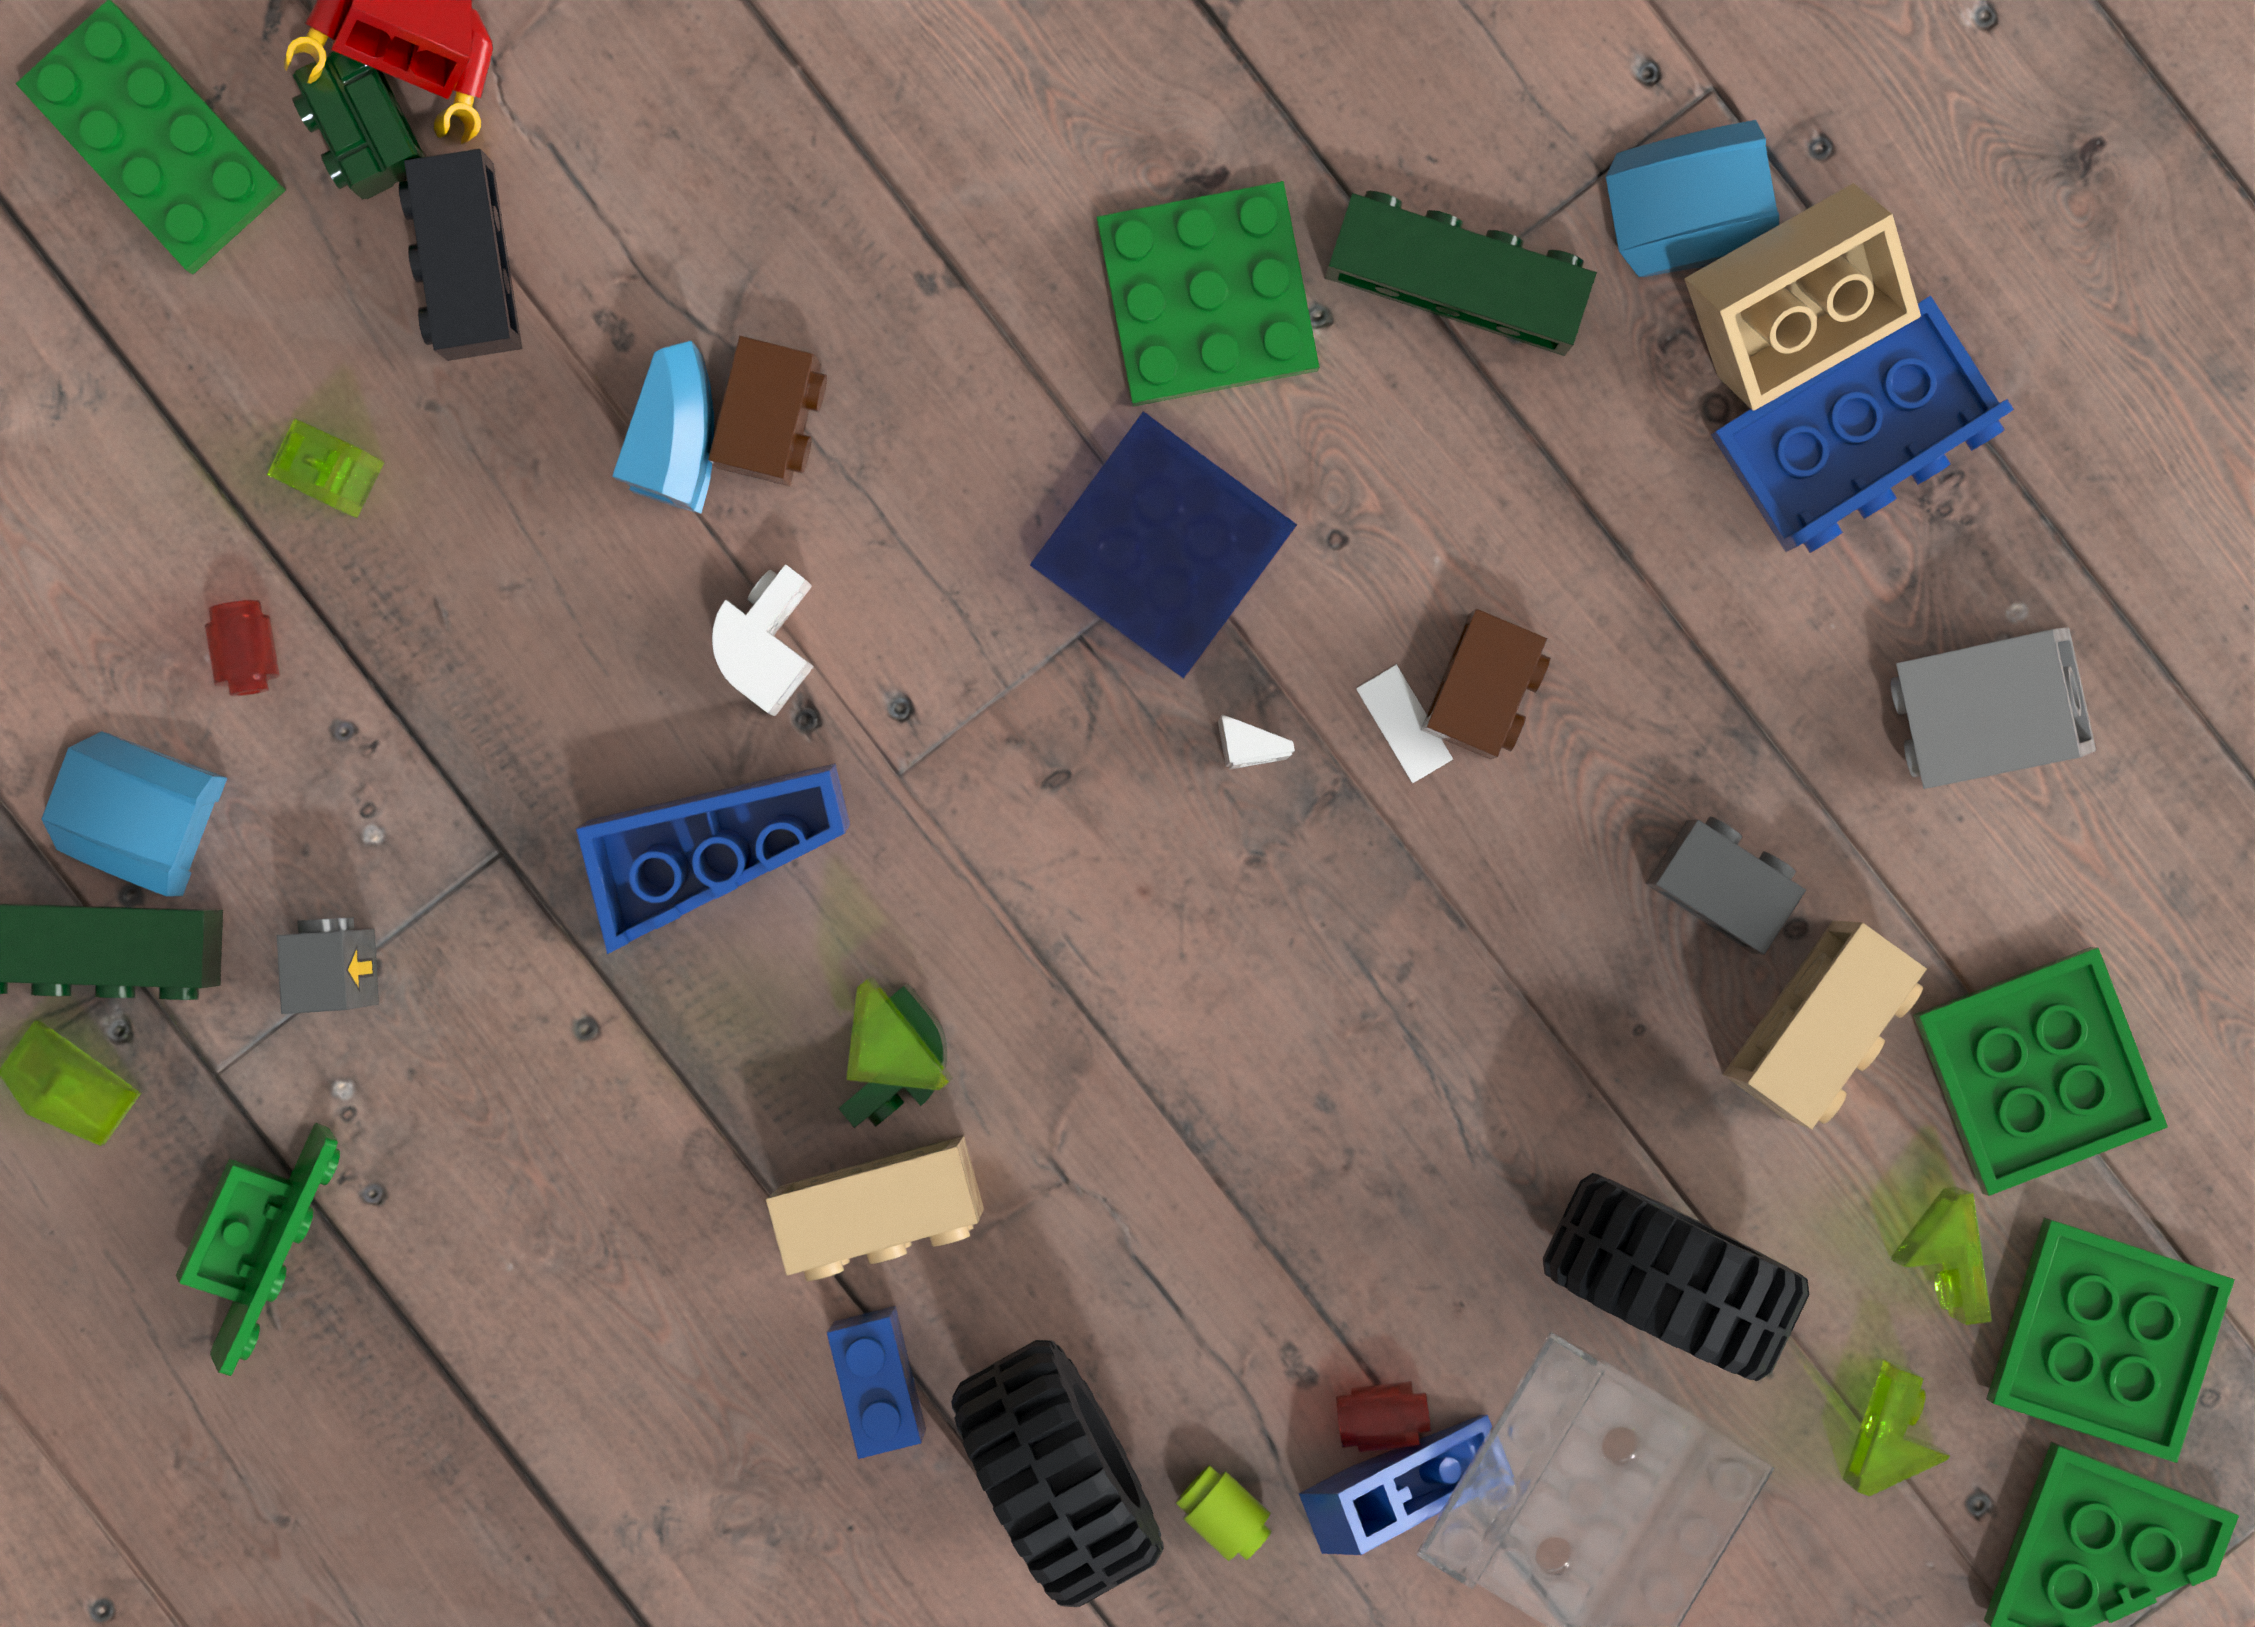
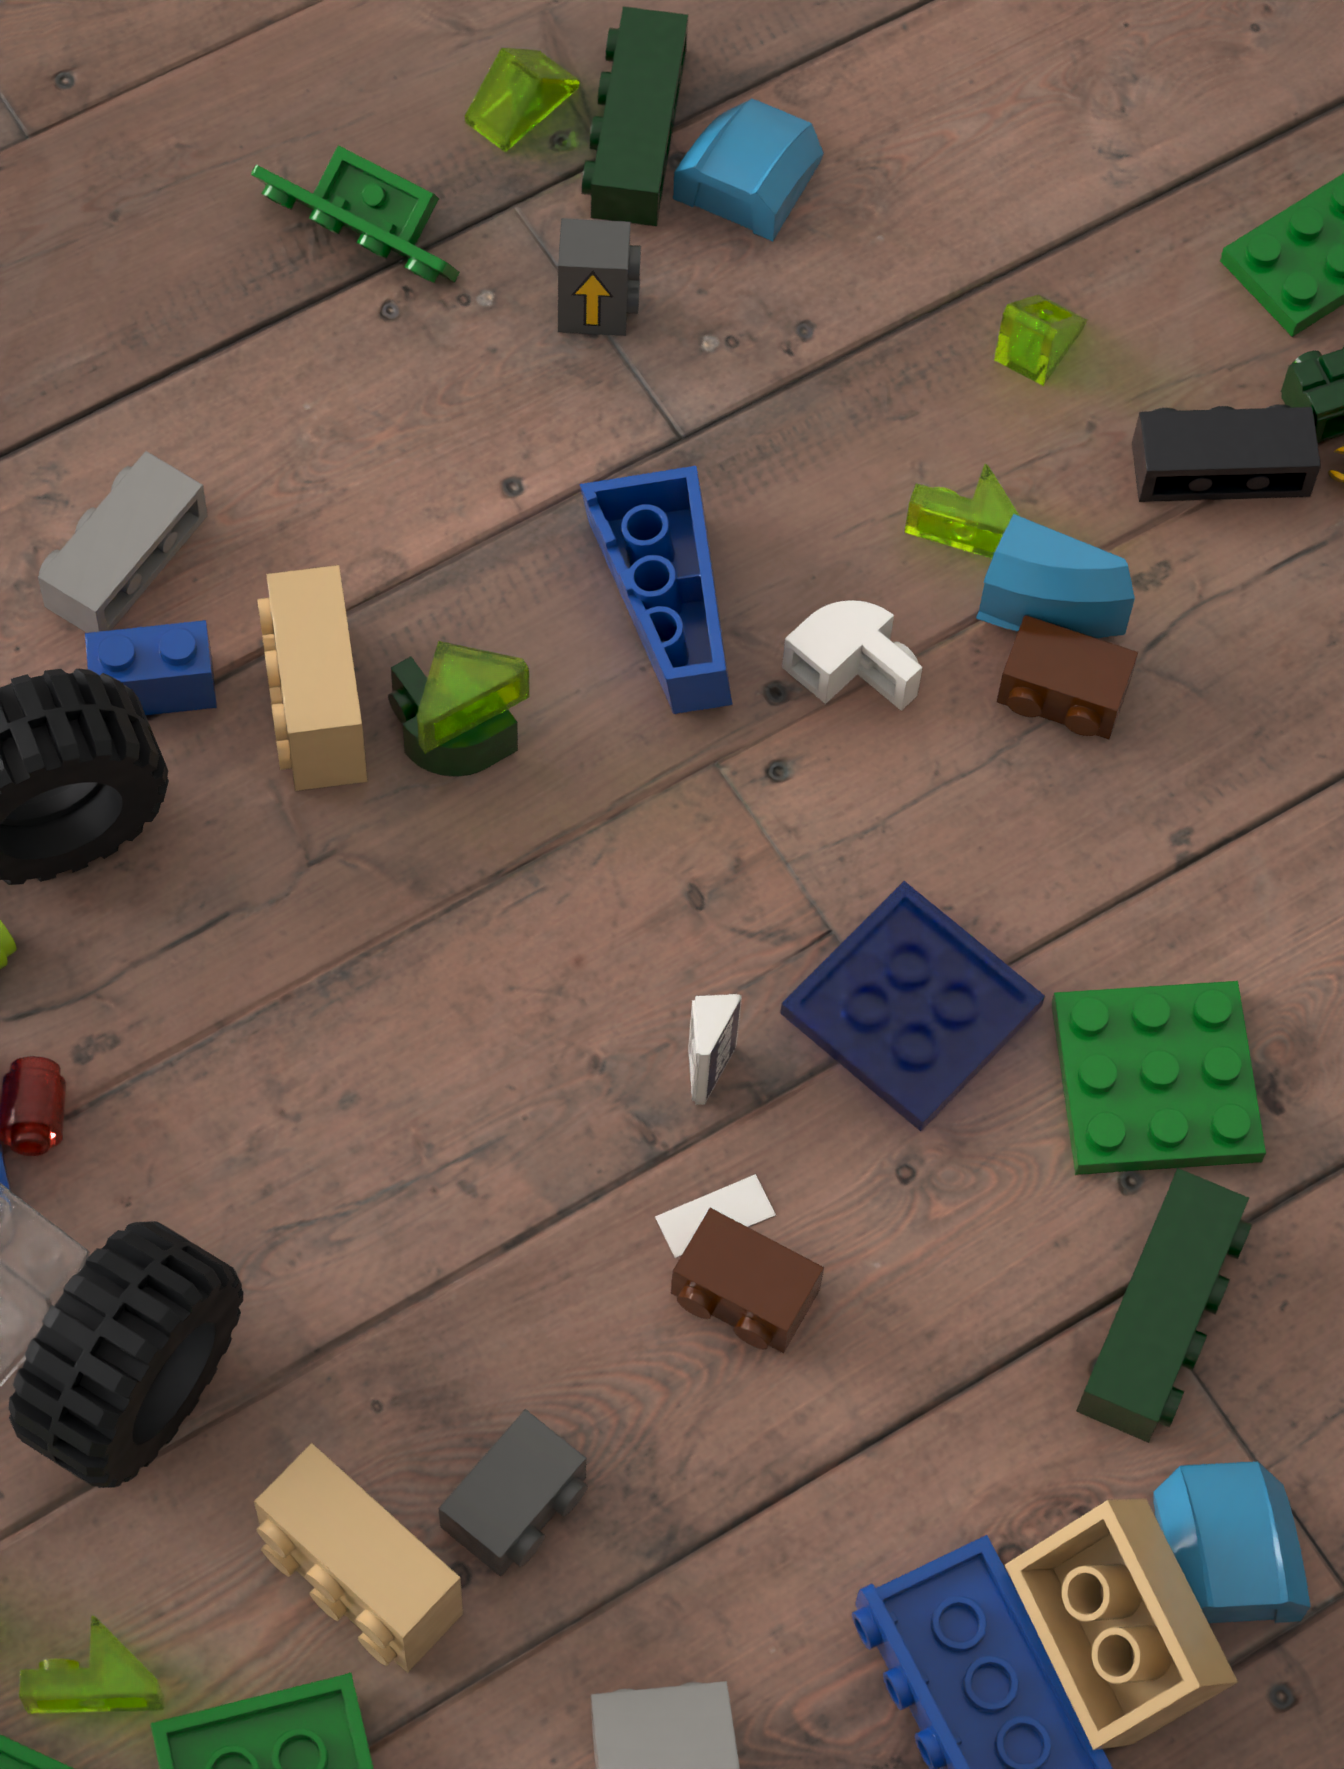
camera: 90 degrees right, 25 degrees down
(241, 647) = (886, 253): clear red brick -> none
(585, 512) = (960, 521): none -> clear neon green slope
(722, 1439) = (122, 544): none -> light grey brick

